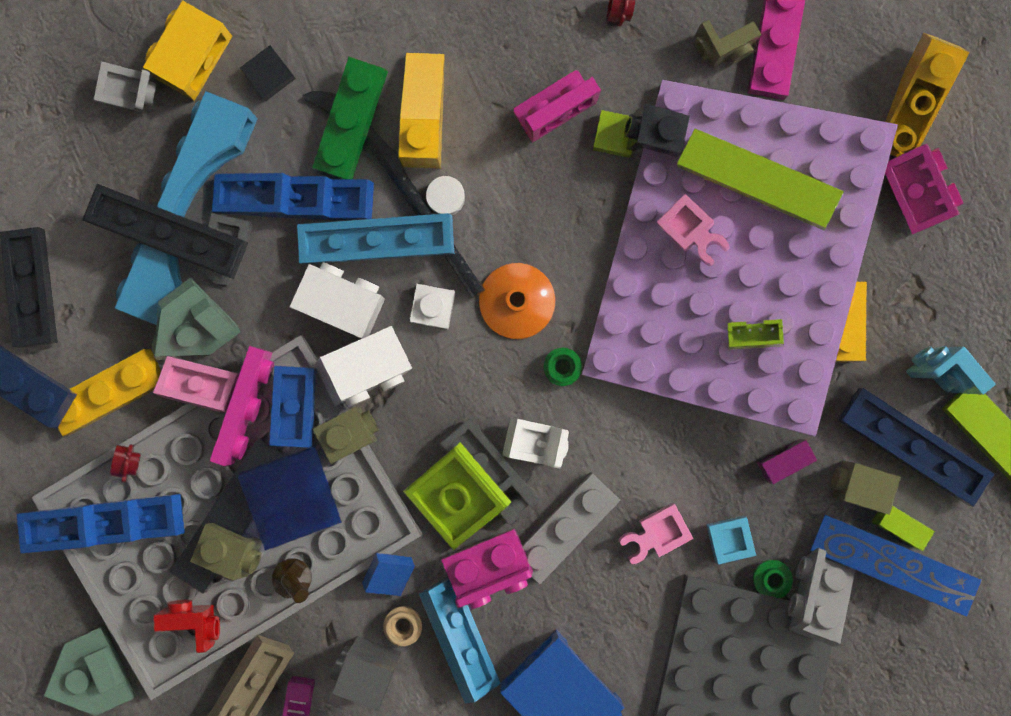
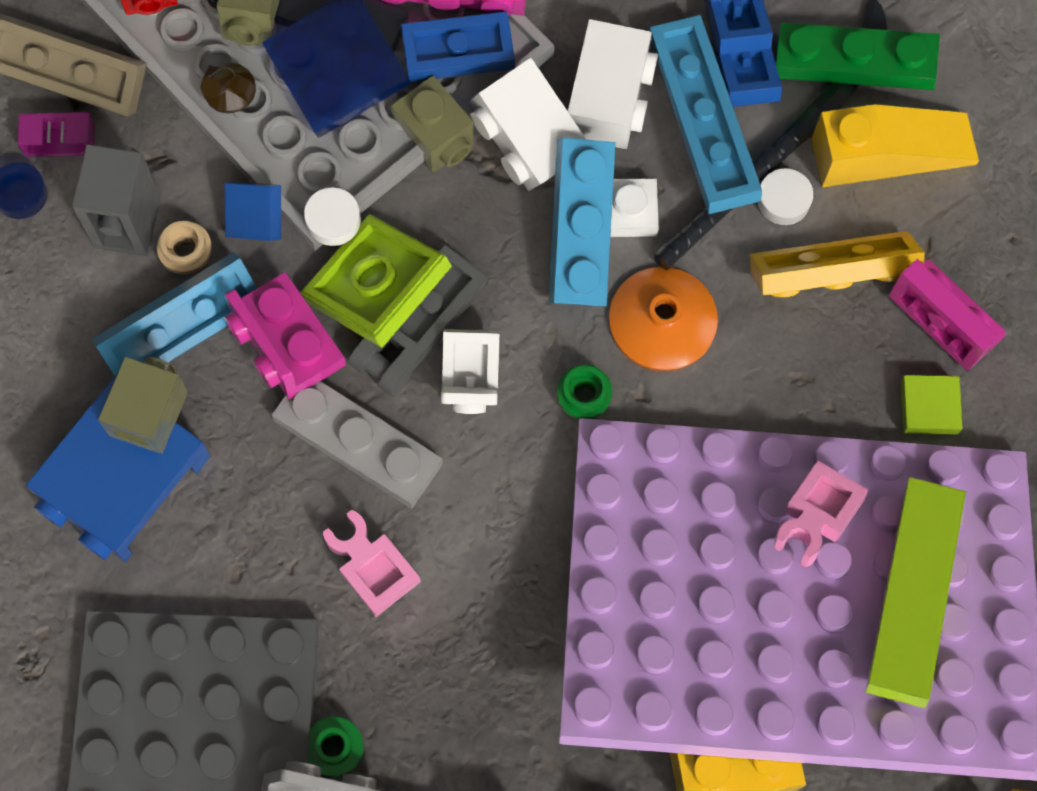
camera: 80 degrees right, 15 degrees down
(406, 520) = (332, 216): none -> white tile
(443, 344) = (581, 222): none -> dark azure plate
(505, 173) = (834, 263): none -> yellow plate
(530, 677) = (144, 403): none -> olive brick
(656, 130) = (950, 445): black bracket -> none
(731, 540) = (381, 672): medium azure plate -> none
(755, 335) = (692, 634): lime piece -> none
(787, 462) = (513, 735): magenta piece -> none

